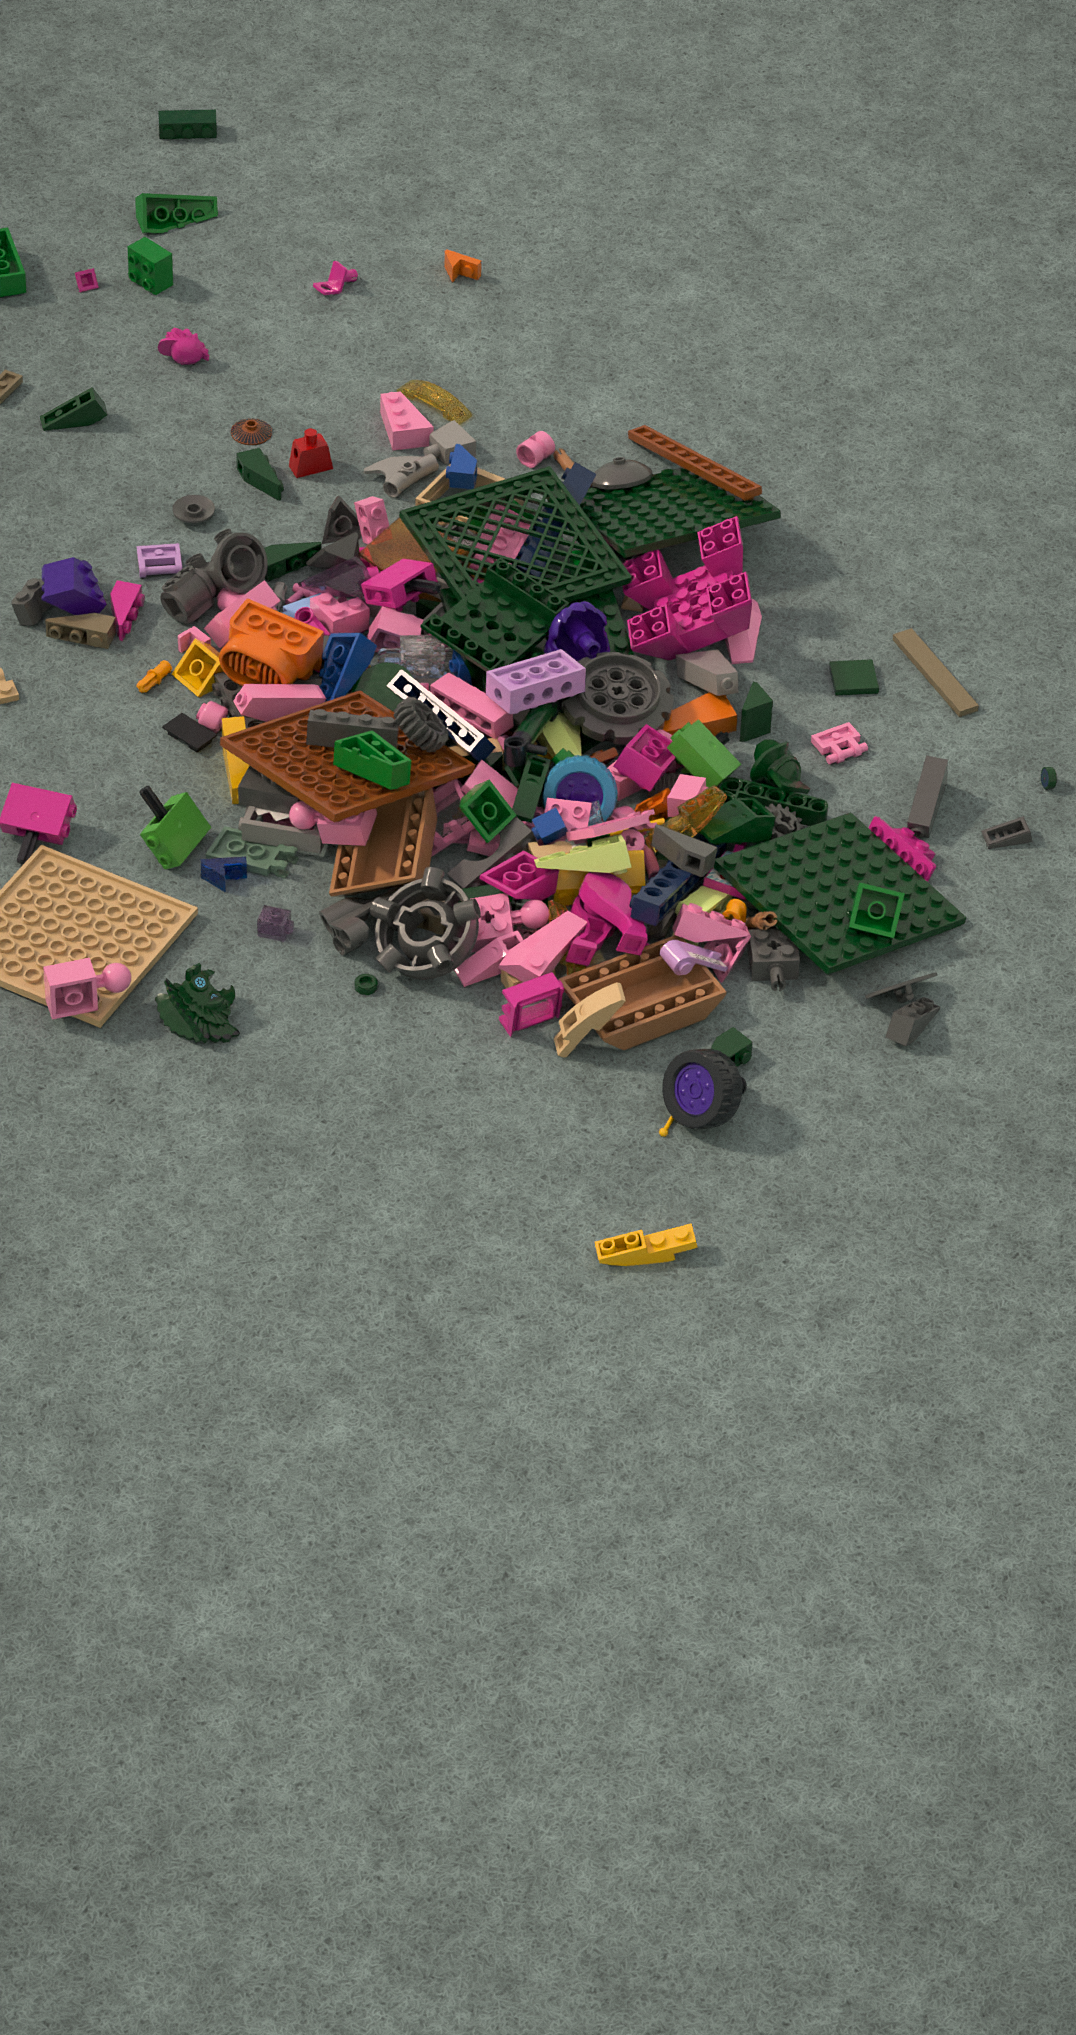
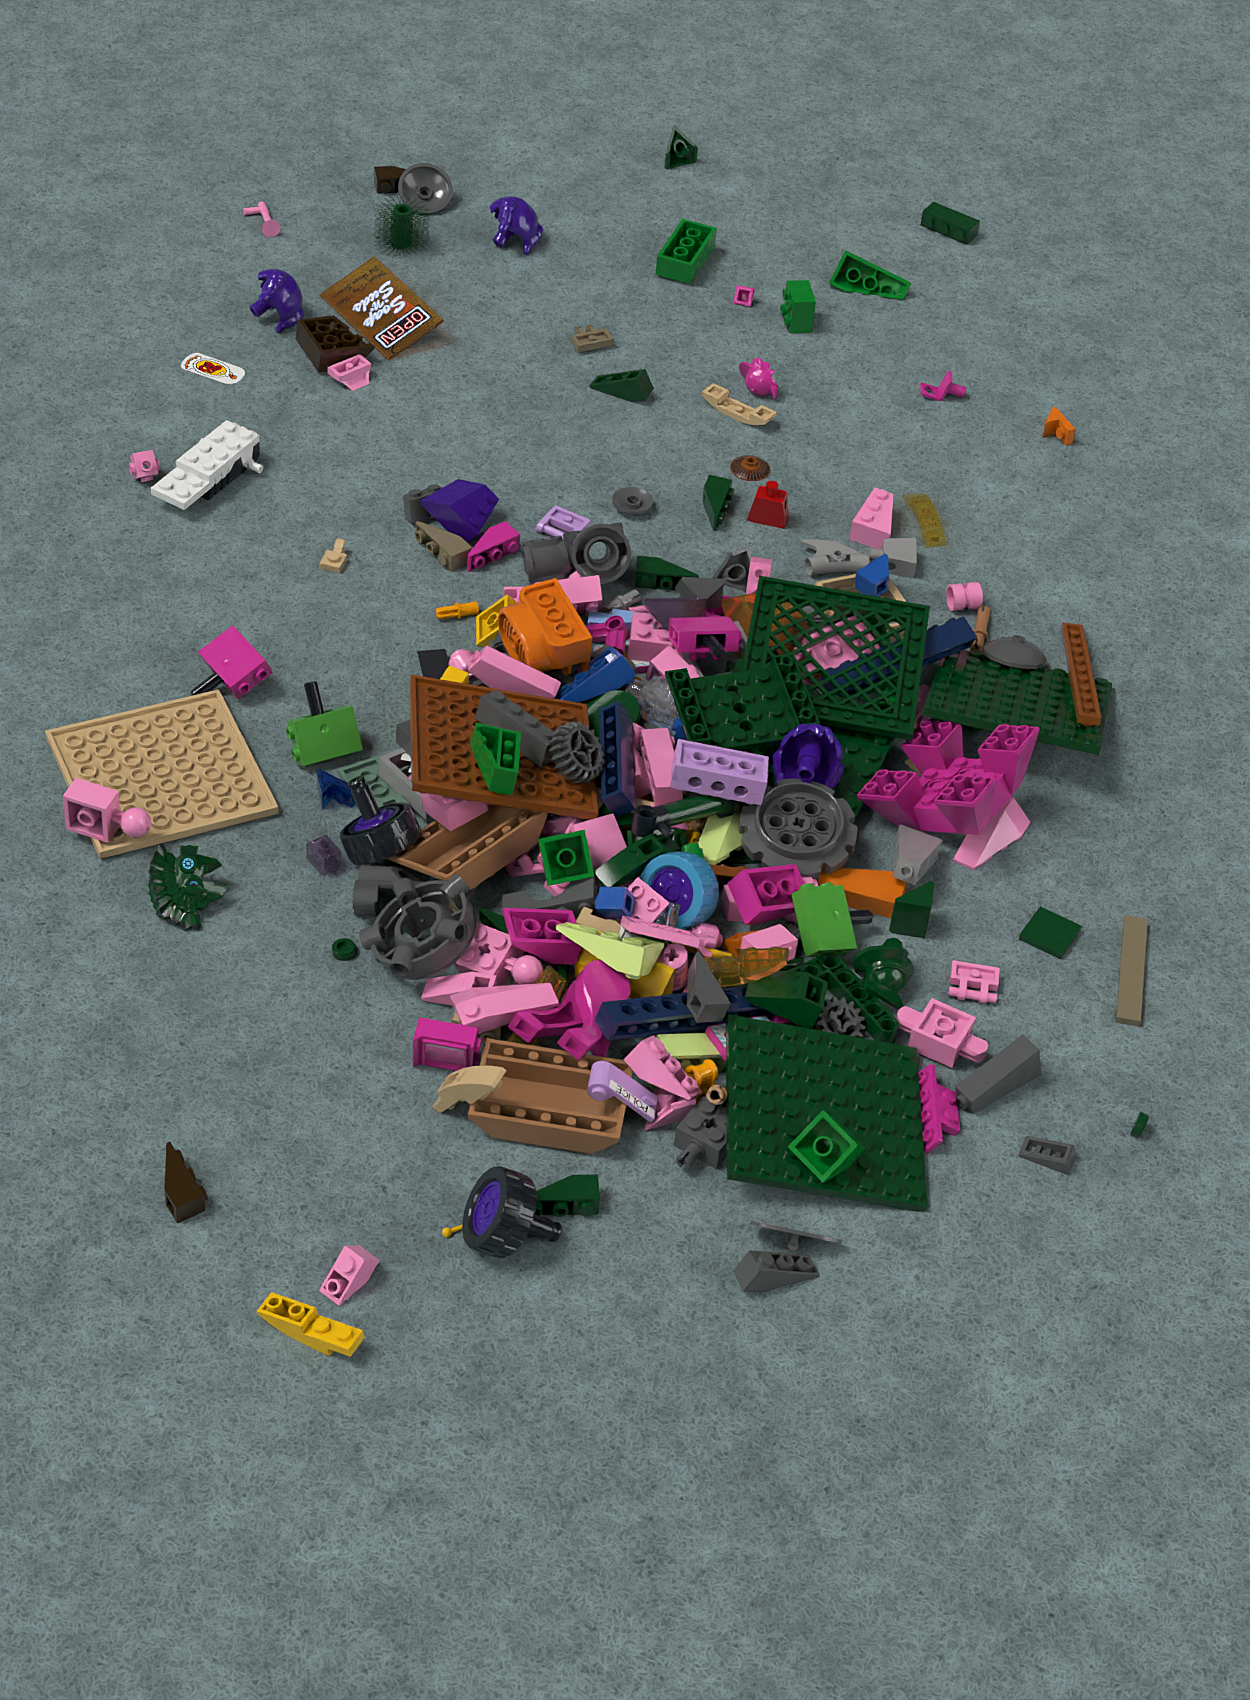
camera: 35 degrees right, 0 degrees up
(191, 386) = (720, 400): none -> tan slope
(308, 876) = (379, 830): none -> black wheel
(447, 1215) = (181, 1191): none -> dark brown slope
(632, 1199) = (348, 1273): none -> bright pink slope
(860, 790) = (946, 1022): none -> bright pink brick

